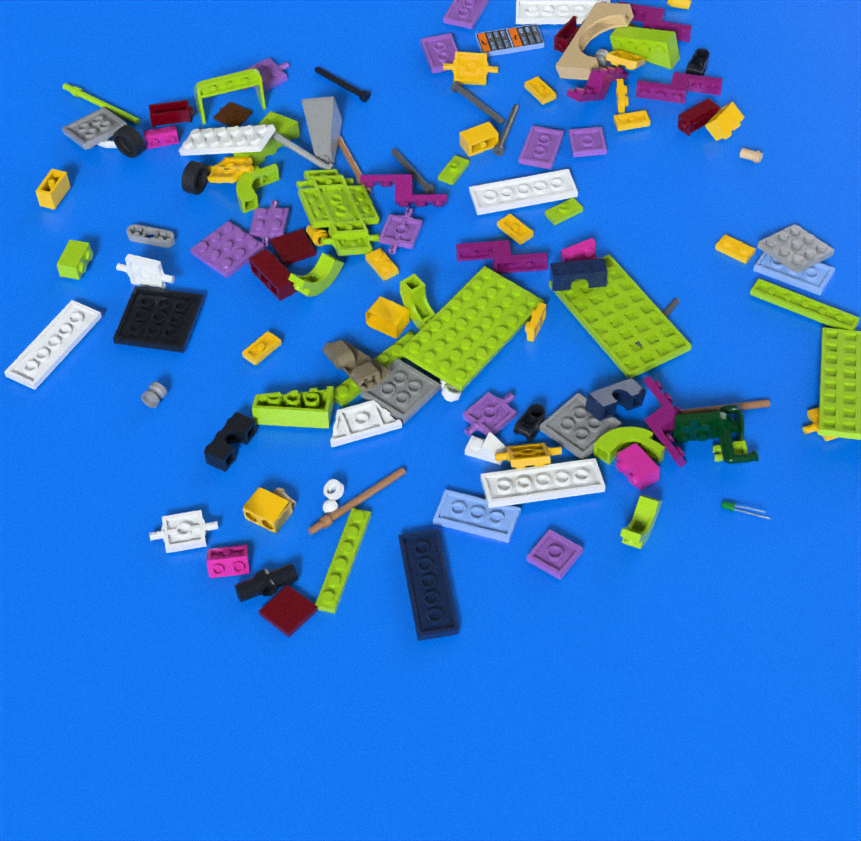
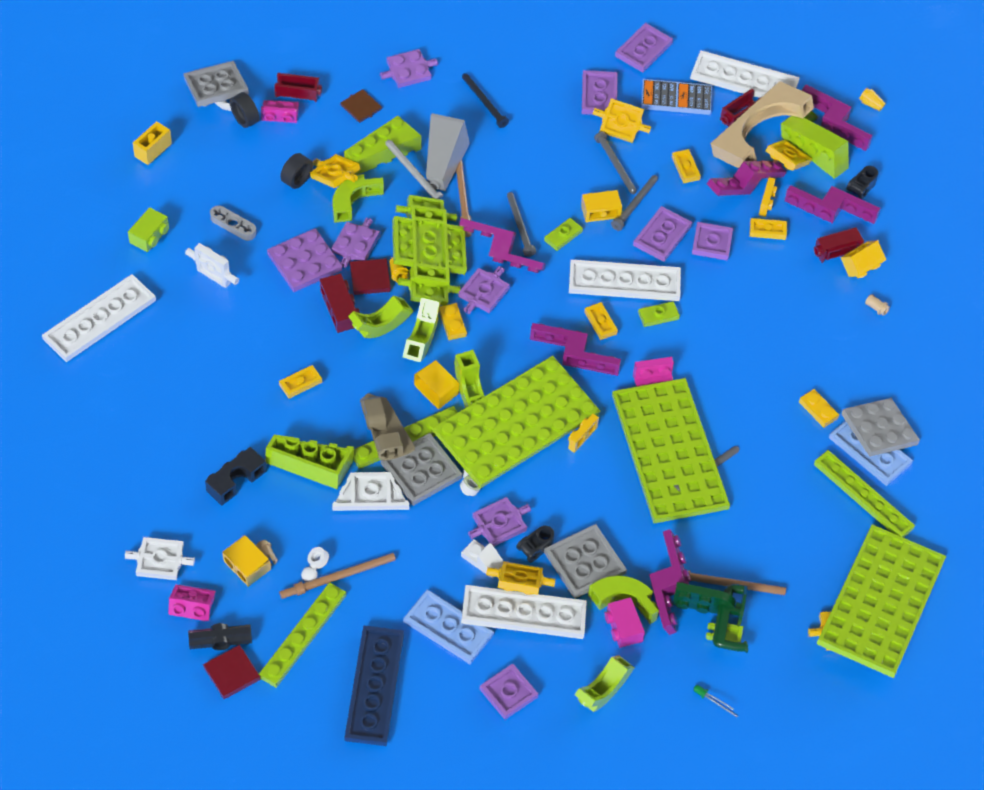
camera: 10 degrees right, 5 degrees up
(77, 92) = (212, 34): lime bar -> none
(154, 394) = (178, 402): light grey wheel -> none
(159, 319) = (210, 319): black plate -> none
(227, 84) = (362, 74): lime windscreen -> none
(227, 140) = (342, 137): white plate -> none
(359, 275) = (424, 329): none -> lime arch
(564, 273) = (631, 389): dark blue arch -> none
(601, 57) = (761, 146): light grey wheel -> none
(603, 402) = (615, 543): dark blue arch -> none

